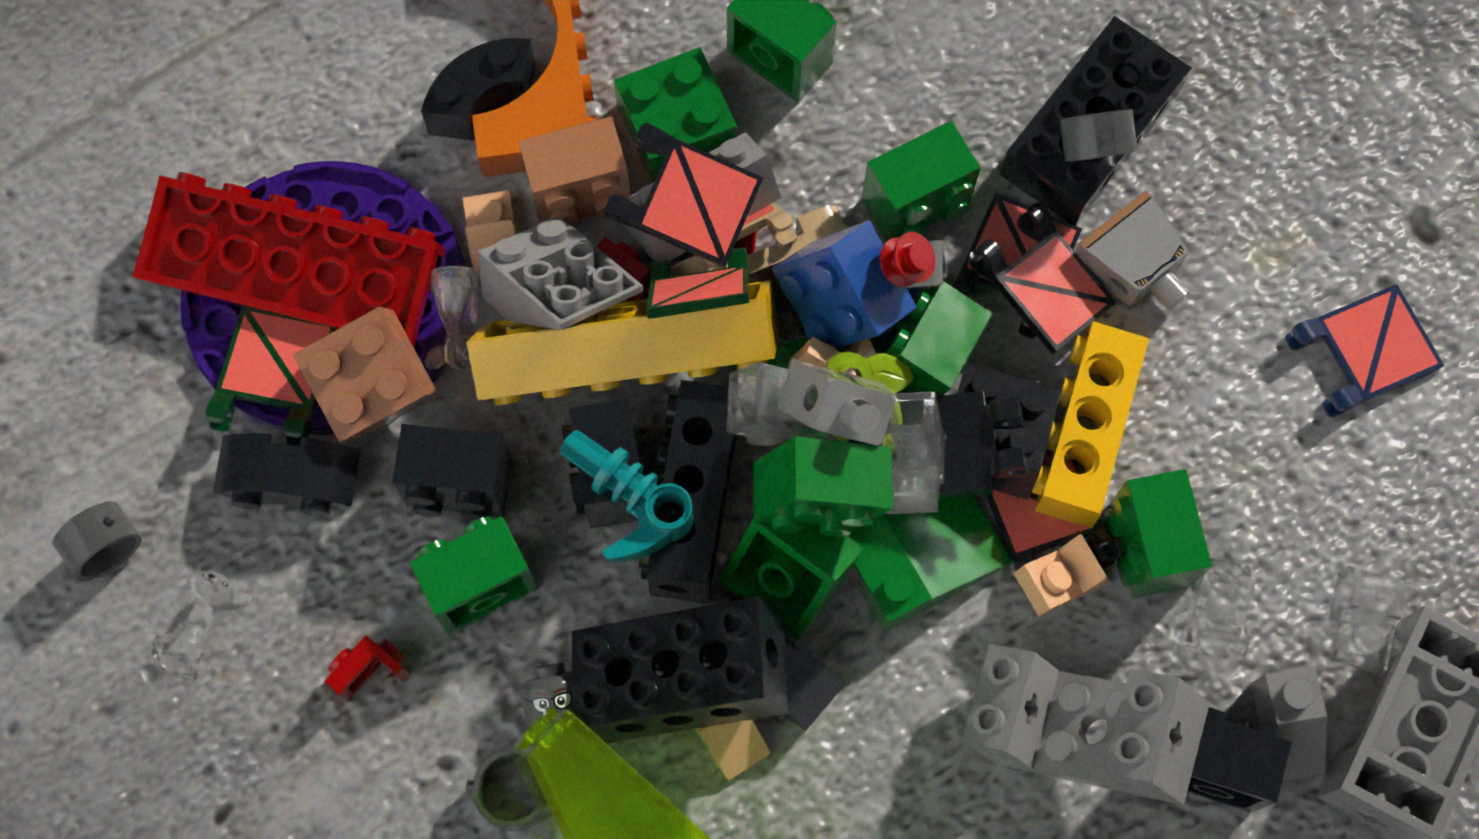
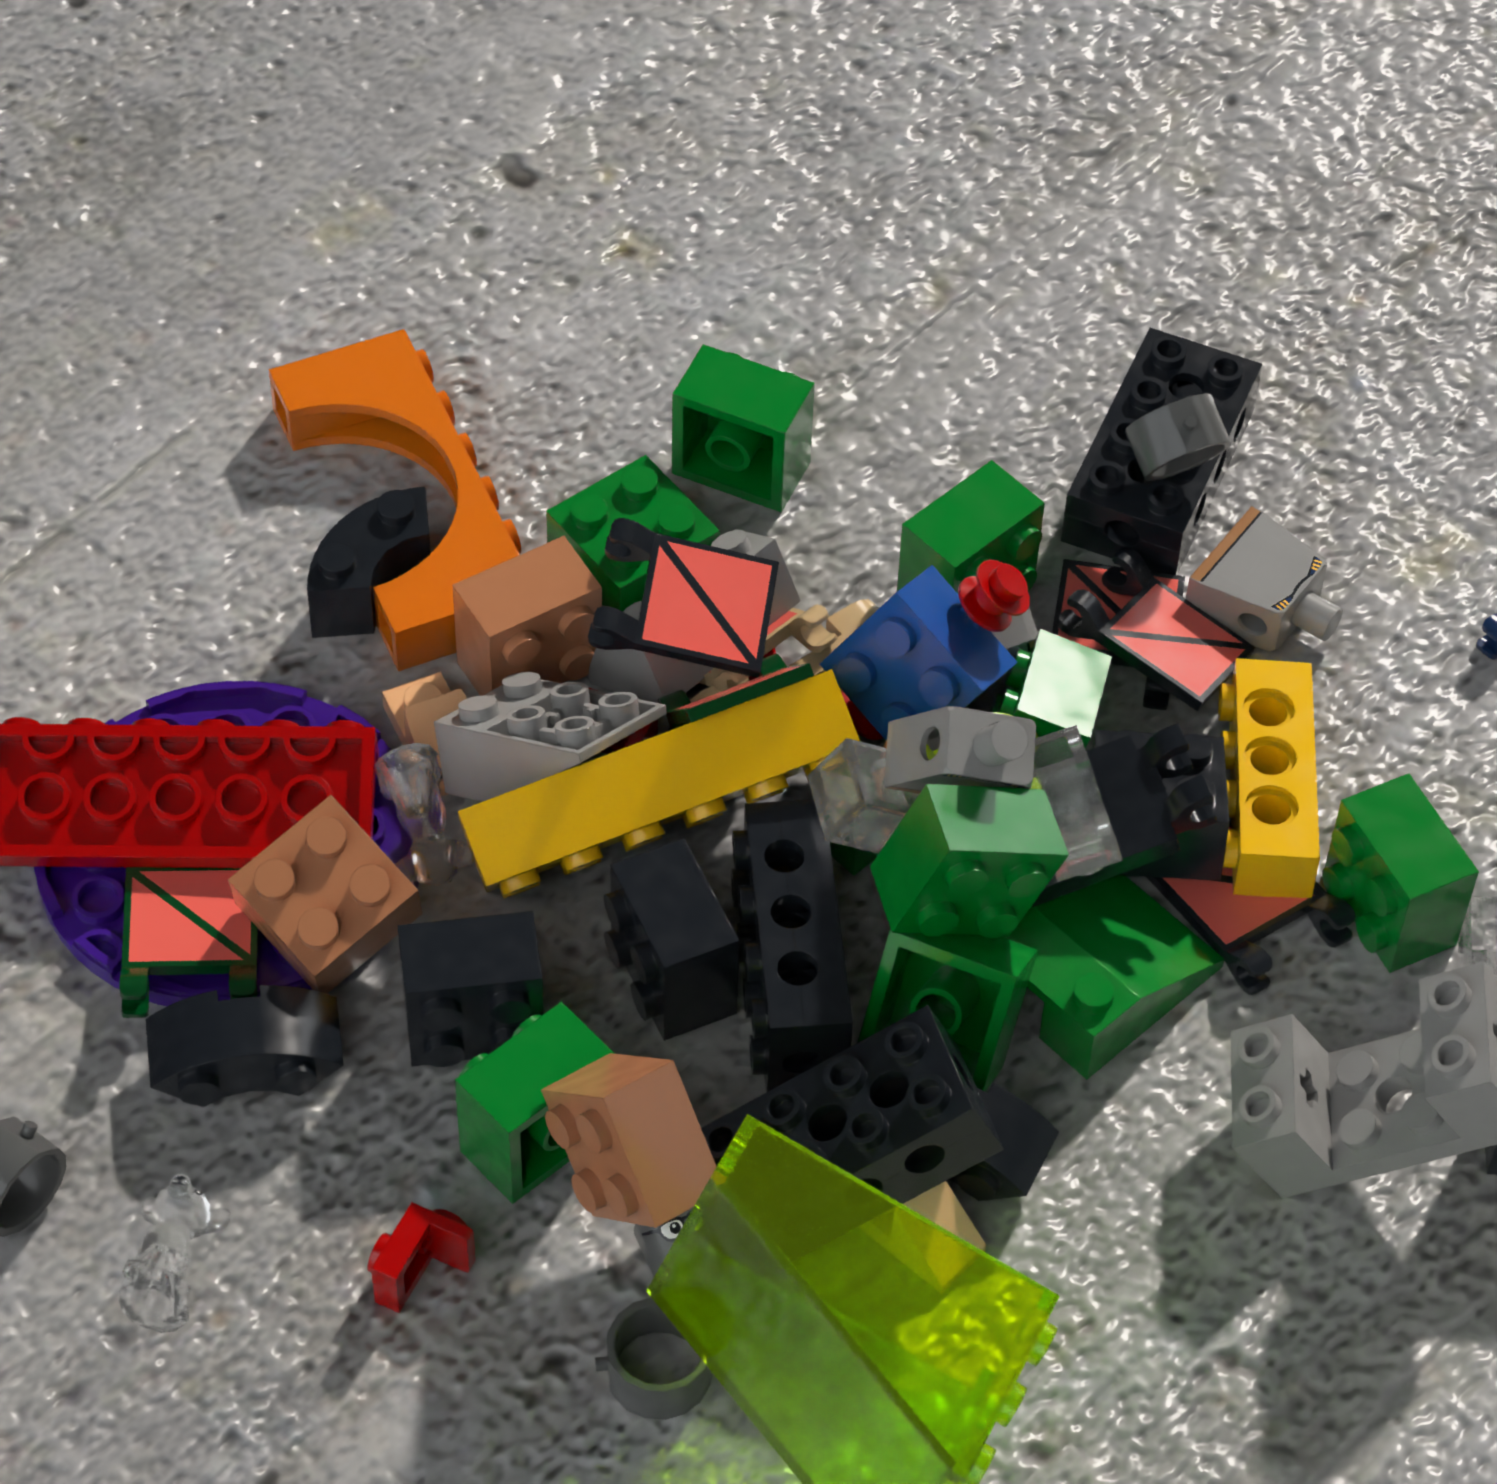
camera: 15 degrees left, 20 degrees down
(516, 647) = (630, 1139): none -> nougat brick
(641, 493) = (745, 931): teal piece -> none
(1061, 576) = (1302, 946): light nougat slope -> none

